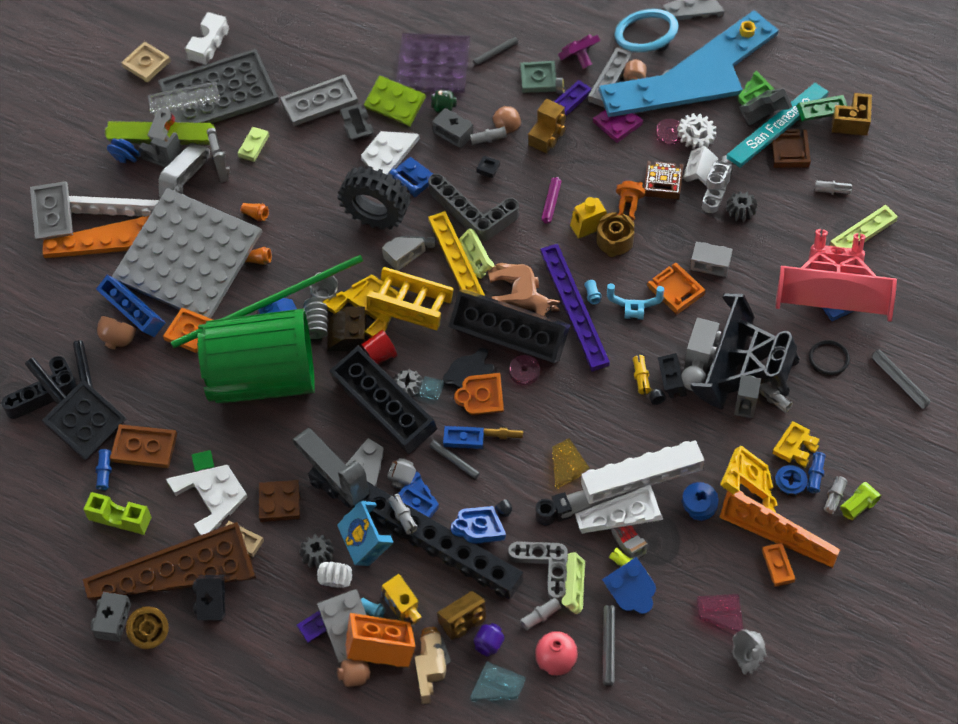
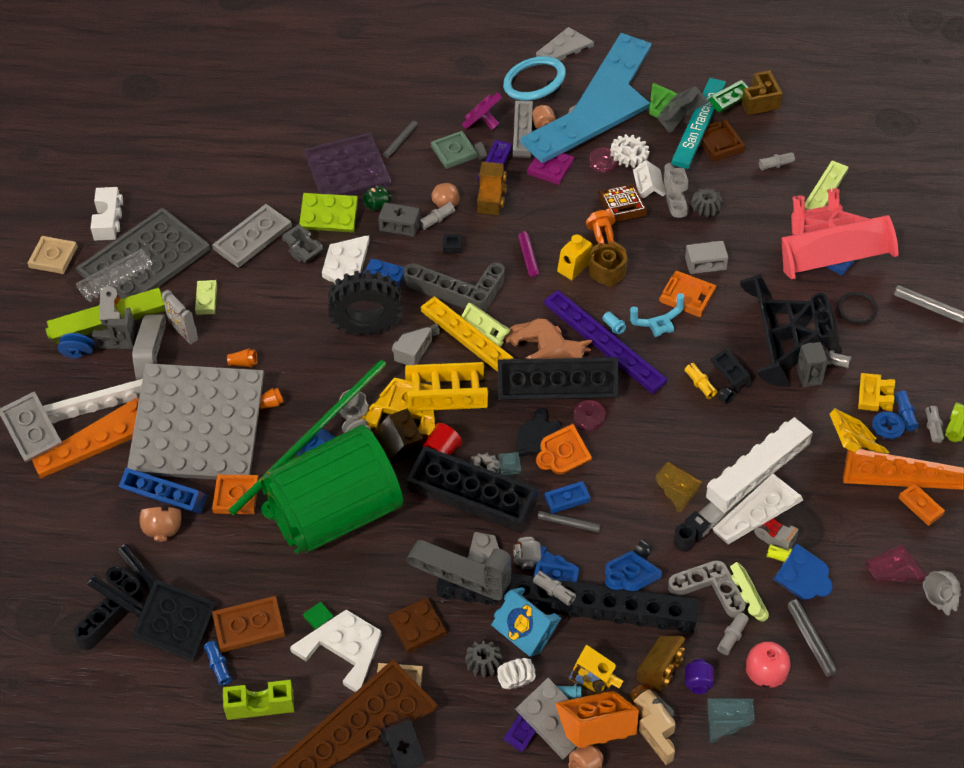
camera: 25 degrees left, 5 degrees down
(503, 433) = (603, 479): pearl gold bar -> none
(700, 351) = (747, 338): light grey brick -> none
(700, 501) = (820, 473): blue piece -> none
(747, 33) = (625, 50): yellow axle -> none

